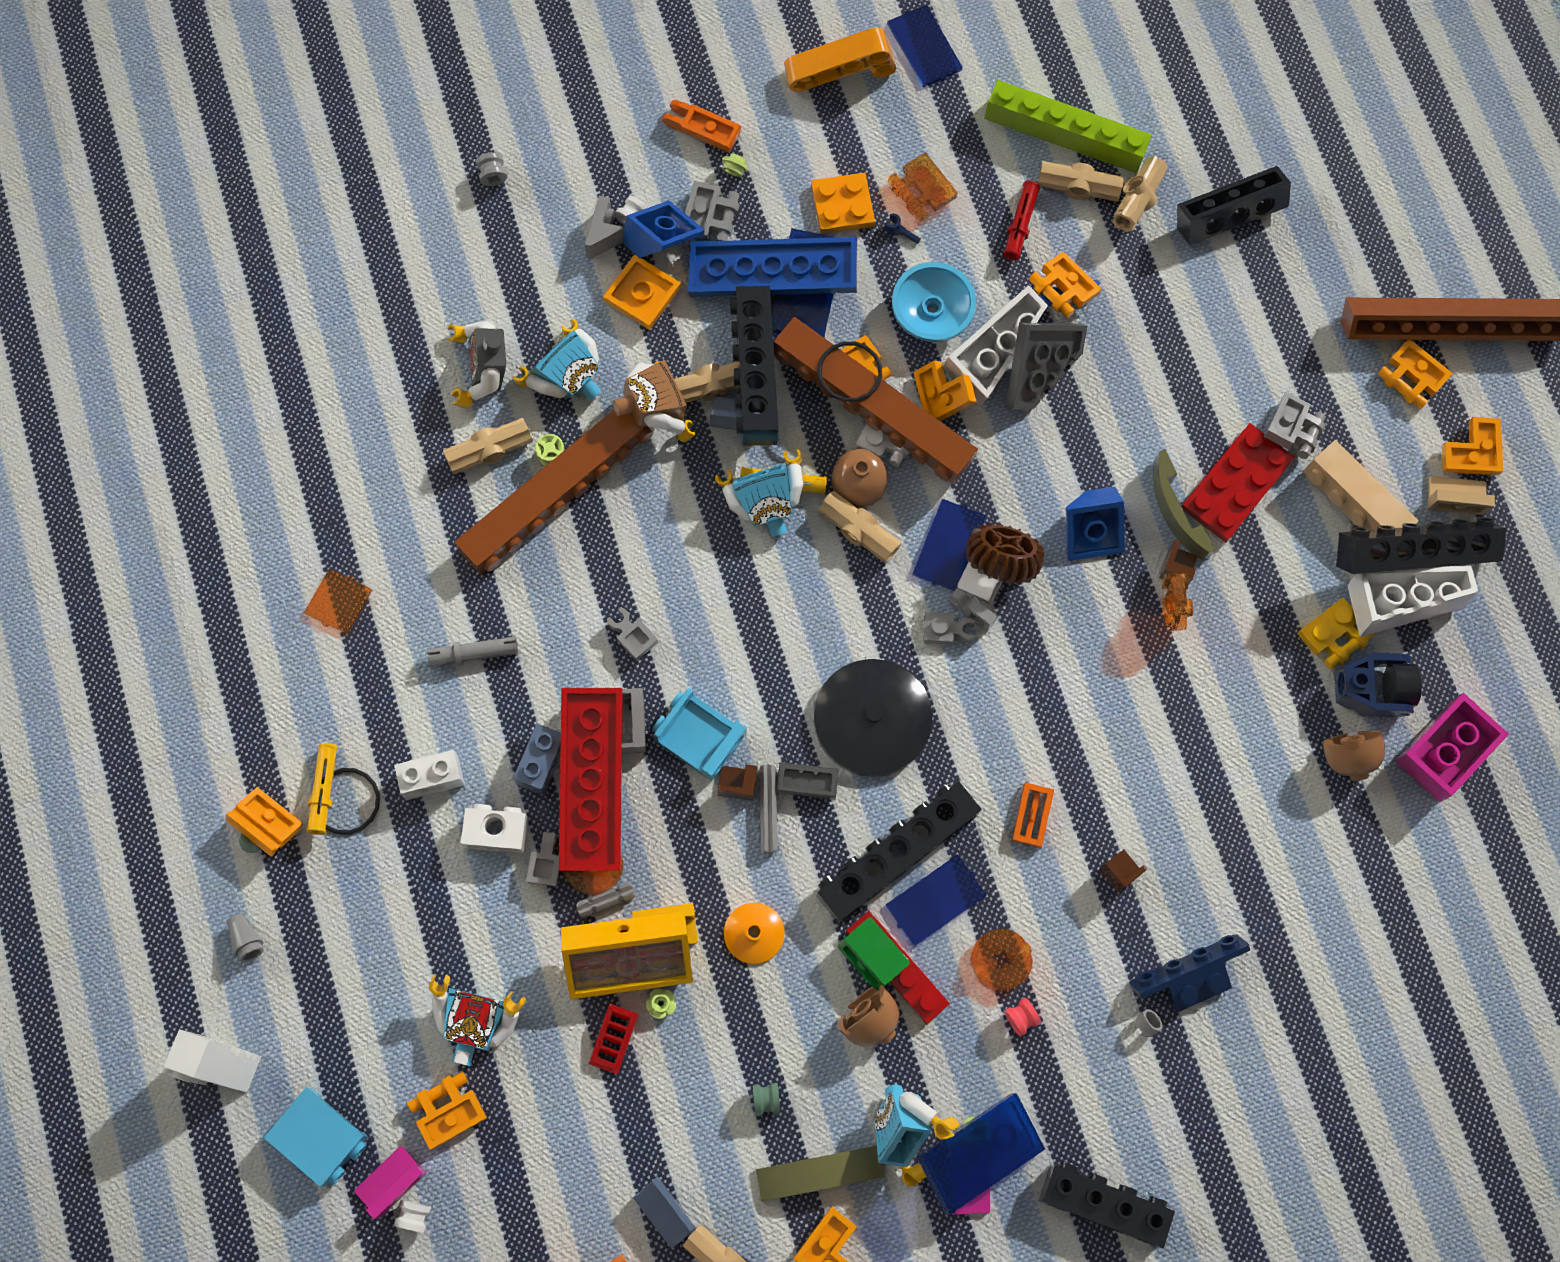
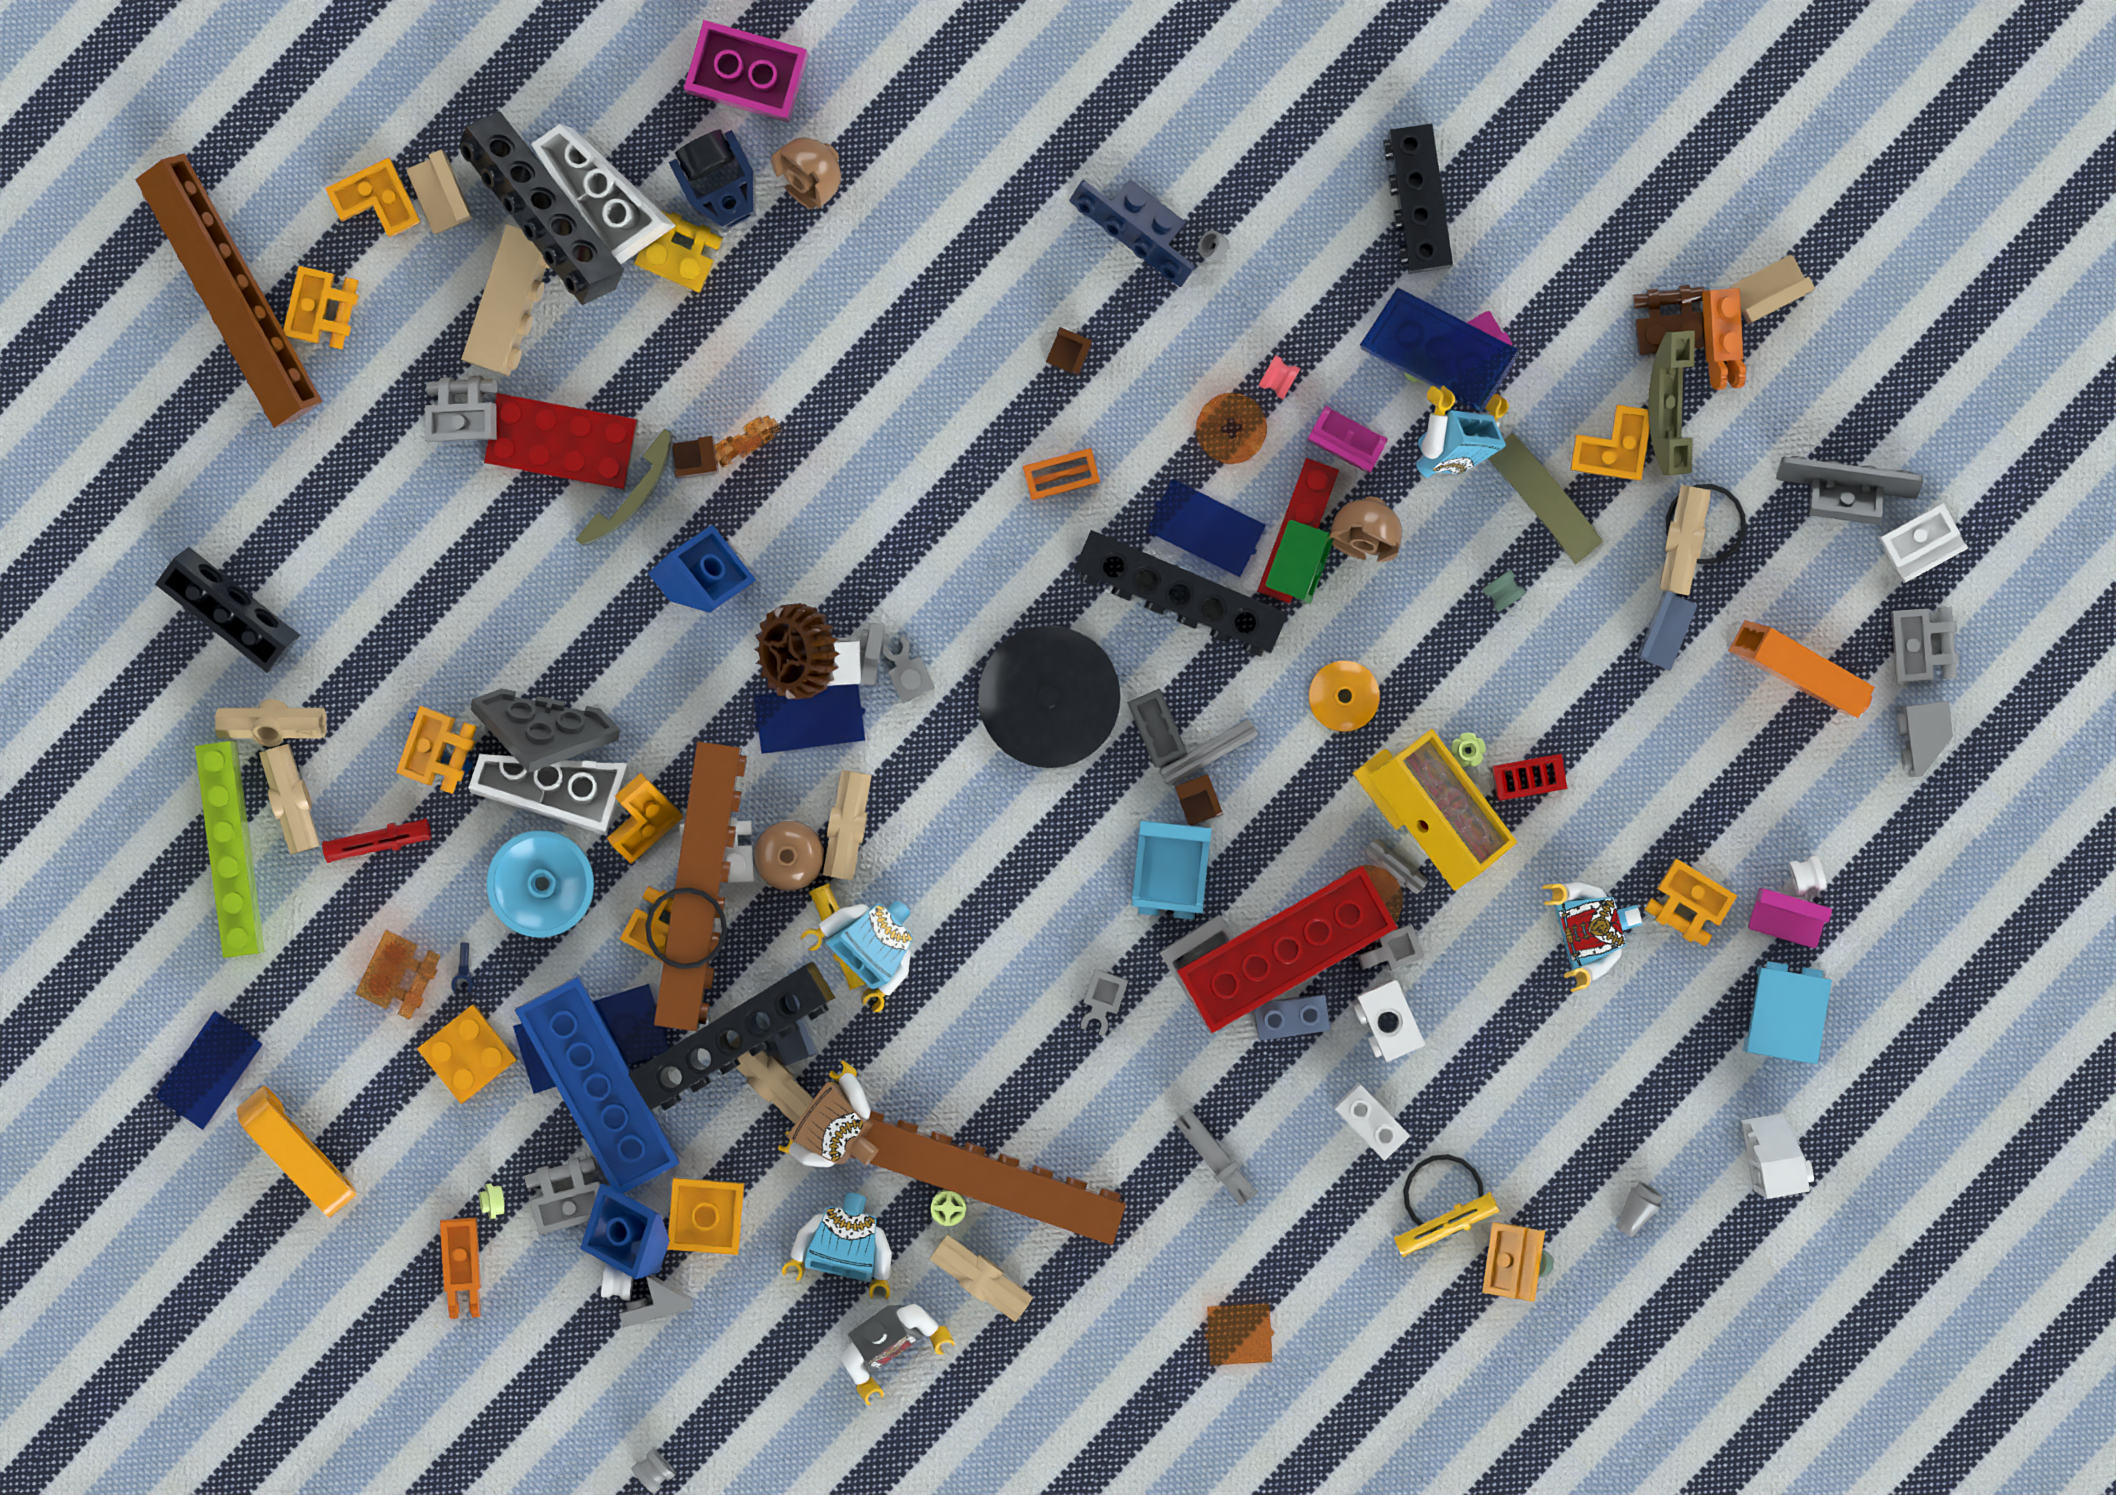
camera: 115 degrees left, 15 degrees up
(947, 1043) = (1347, 439): none -> dark pink hinge

